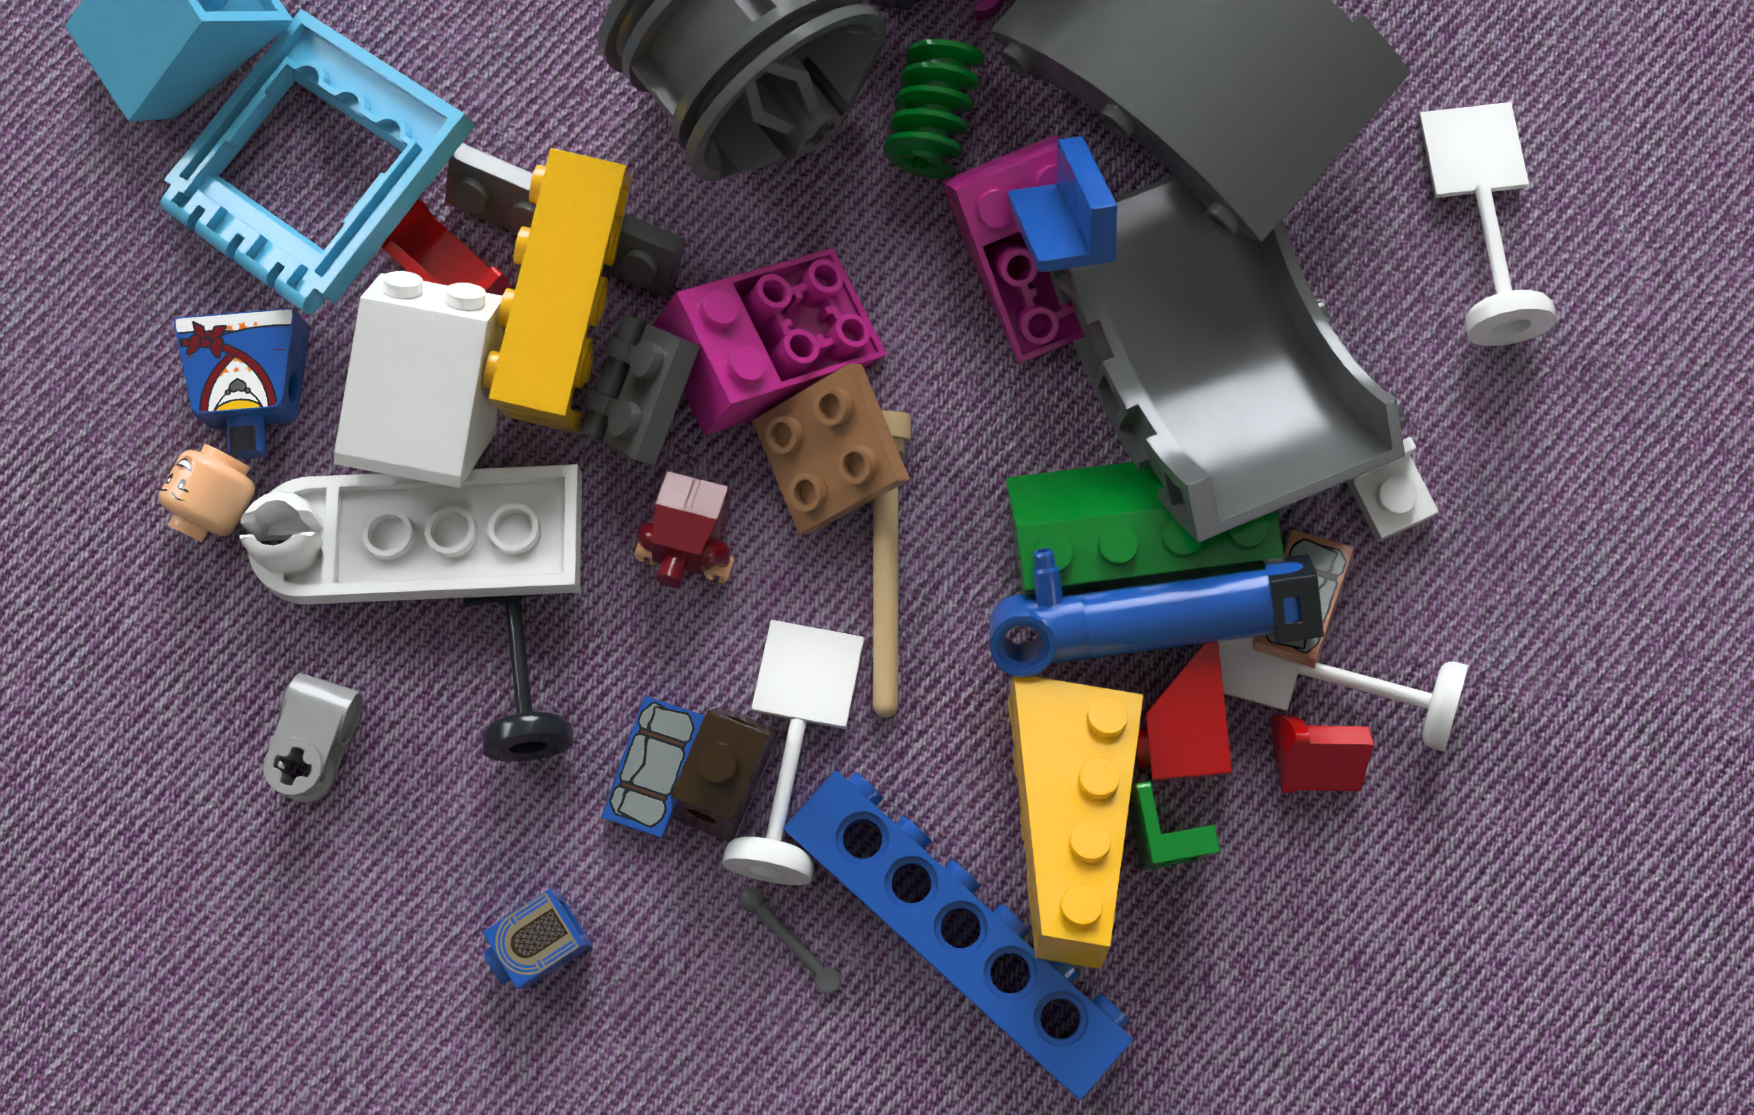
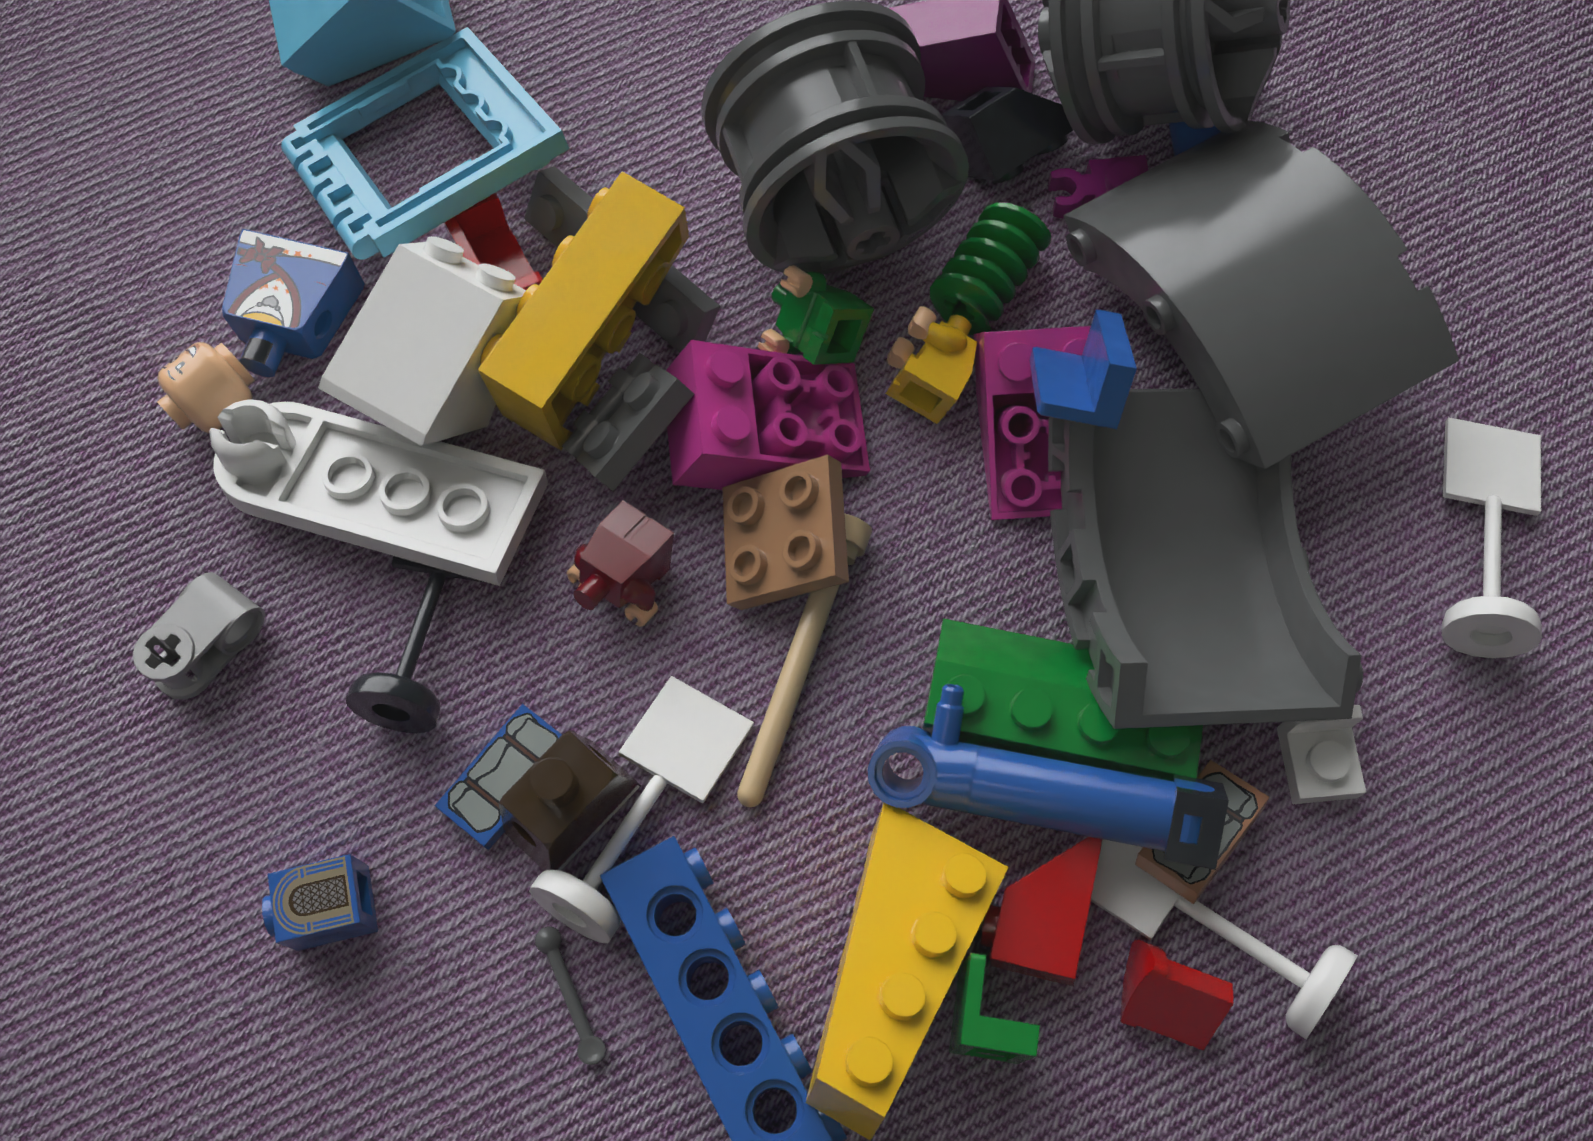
camera: 15 degrees right, 10 degrees down
(783, 221) = (816, 319): none -> green piece
(919, 231) = (941, 368): none -> yellow piece

